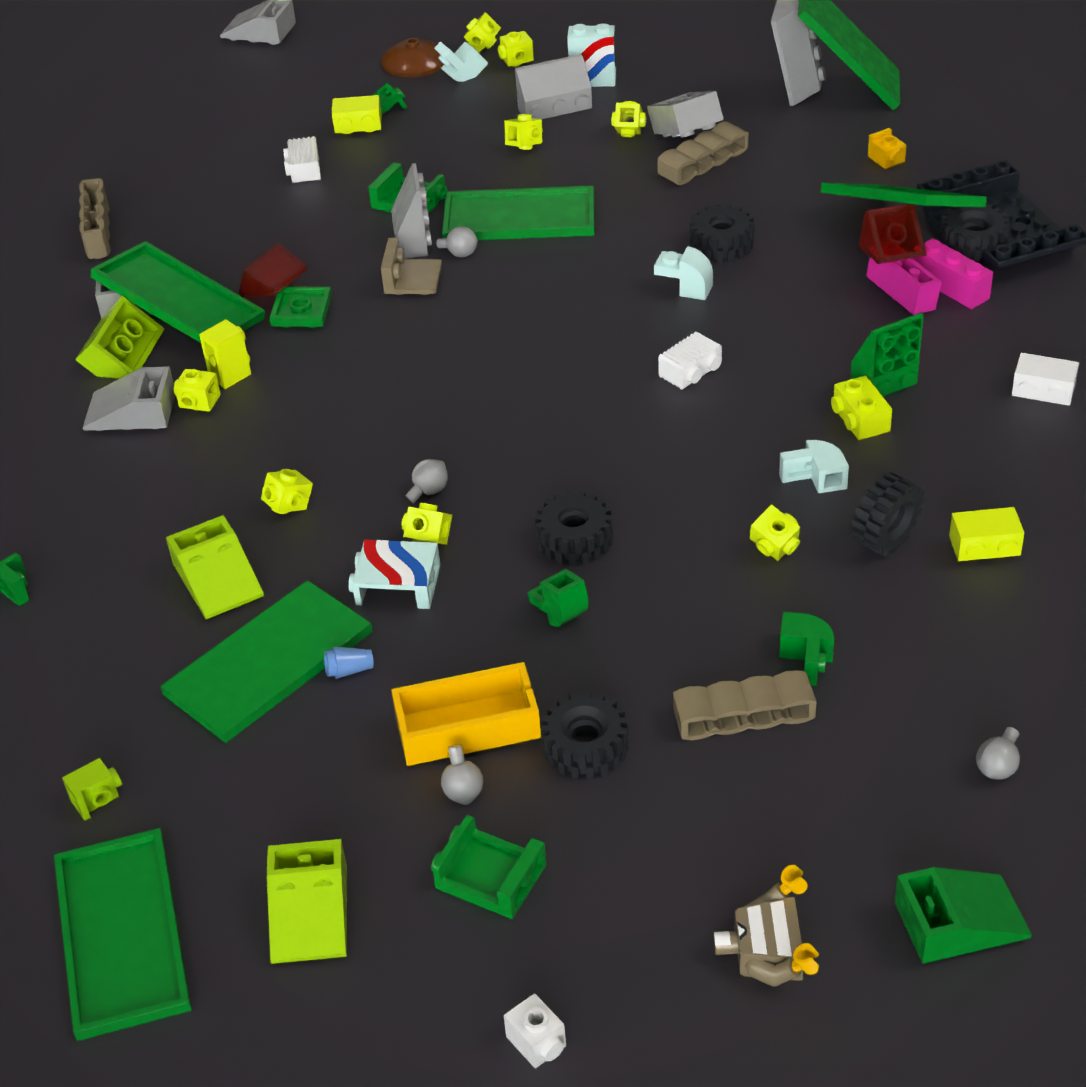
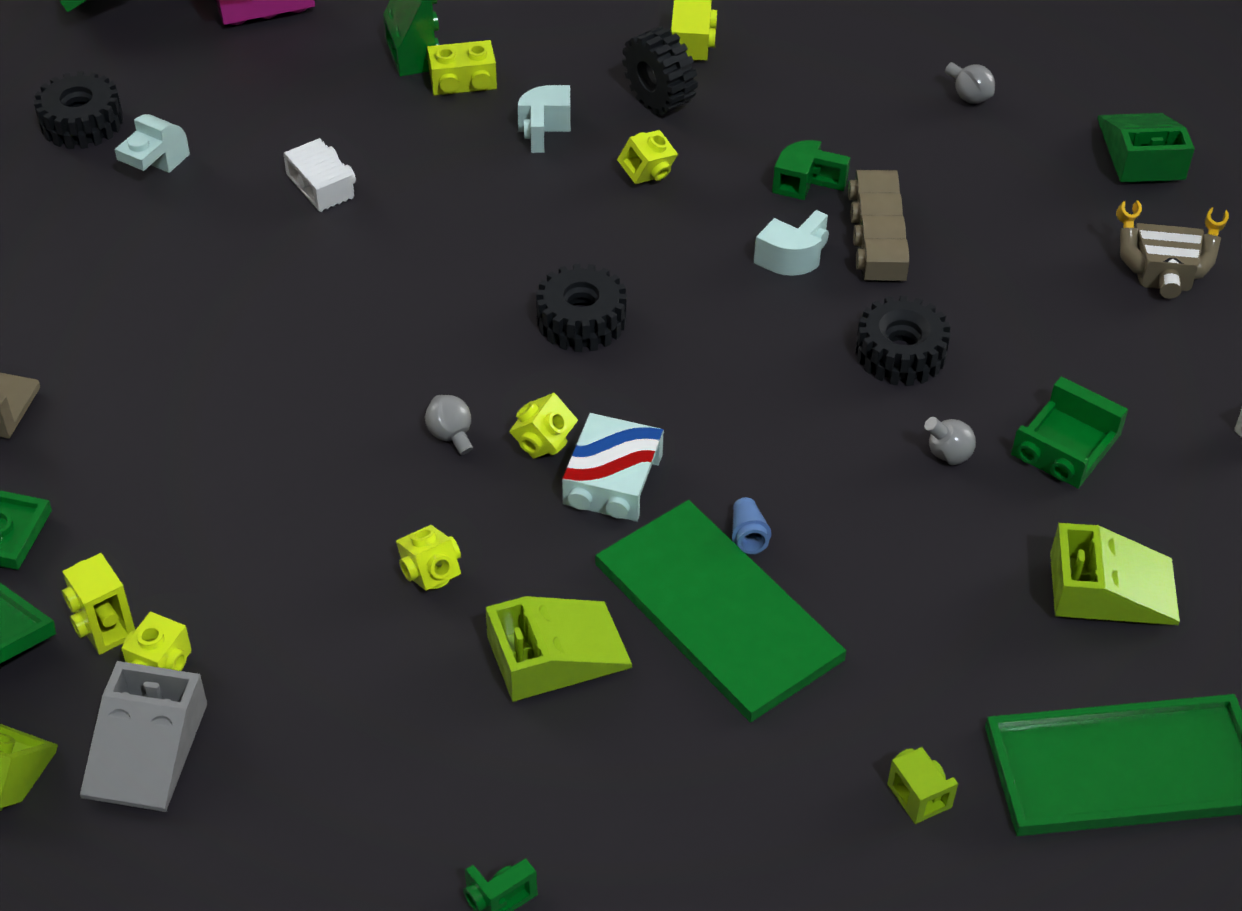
camera: 85 degrees left, 5 degrees up
(466, 710) = (869, 422): yellow piece -> none
(560, 597) = (711, 328): green brick -> none
(692, 649) = (792, 249): none -> light aqua brick

